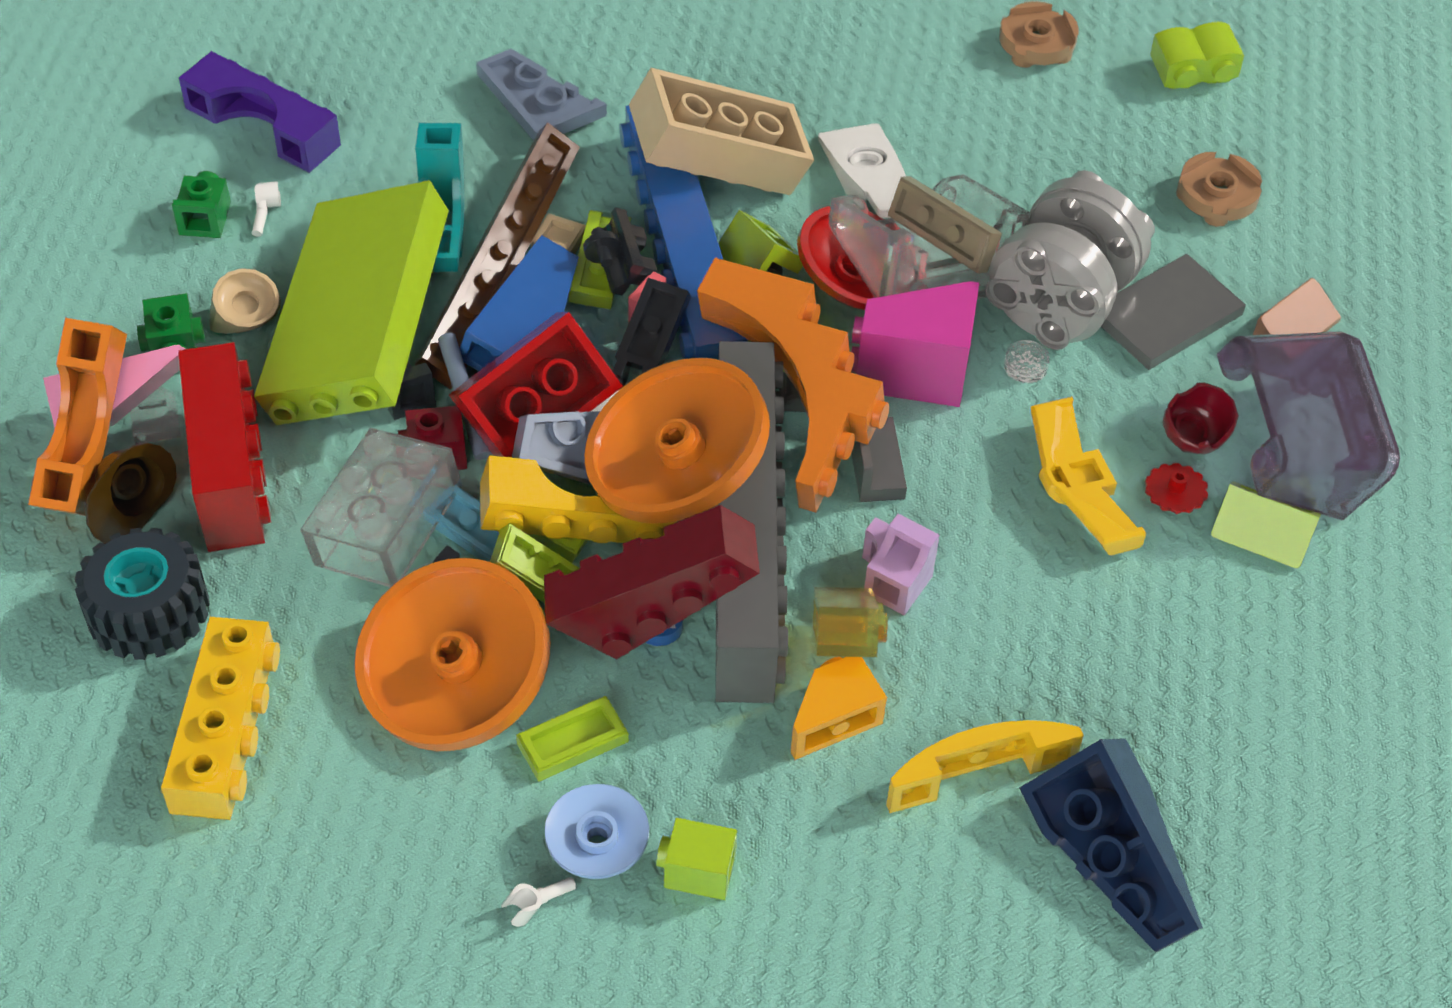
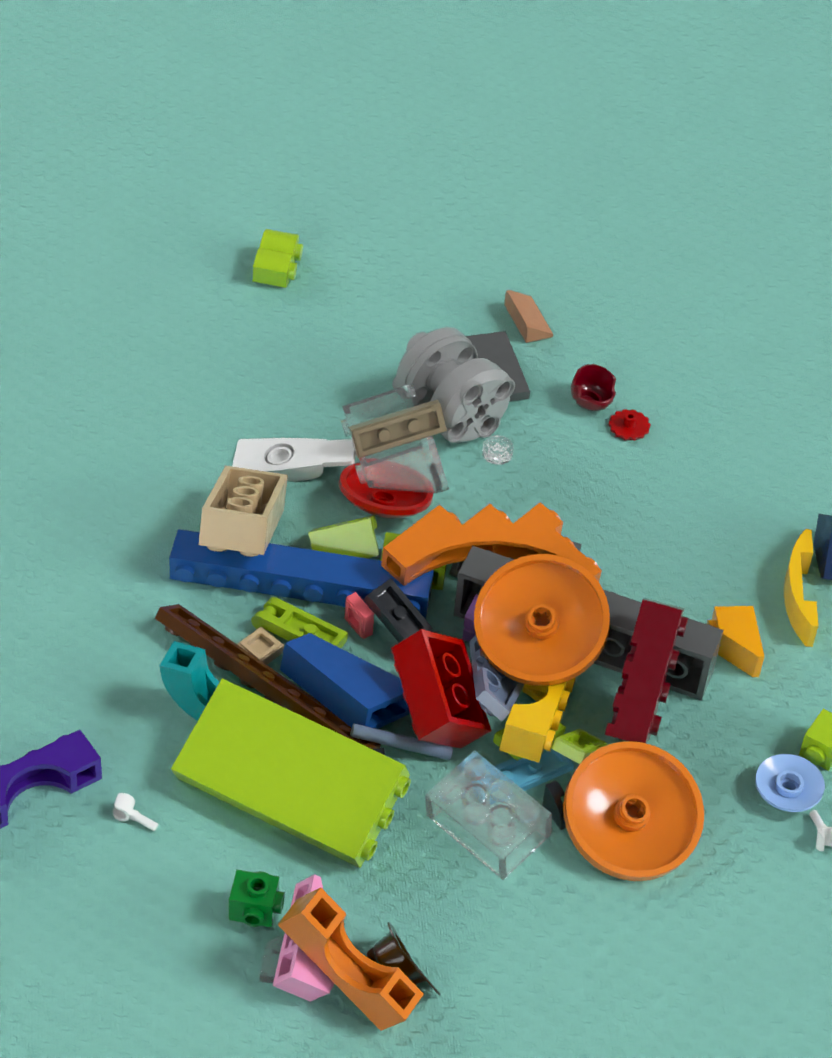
camera: 70 degrees left, 5 degrees down
(142, 593) = (506, 976): black wheel -> none
(202, 194) = (115, 849): green brick -> none
(220, 719) = (628, 959): yellow brick -> none
(224, 447) = (399, 888): red brick -> none
(243, 301) = (244, 845): tan piece -> none
(438, 426) = (431, 767): dark red brick -> none
(536, 97) = (114, 612): sand blue wing -> none
(572, 738) = (708, 773): lime tile -> none
(618, 252) = (319, 607): black hips -> none
(848, 622) = (701, 597): clear yellow brick -> none
(899, 561) = (644, 567): lavender brick -> none
(918, 342) = (485, 476): dark pink slope -> none
(1052, 46) = (213, 336): medium nougat plate -> none
(1081, 478) = (609, 460): yellow plate -> none
(1219, 205) = (410, 306): medium nougat plate -> none
(1264, 525) = (678, 395): lime panel -> none
(1323, 419) = (628, 324): clear purple windscreen -> none

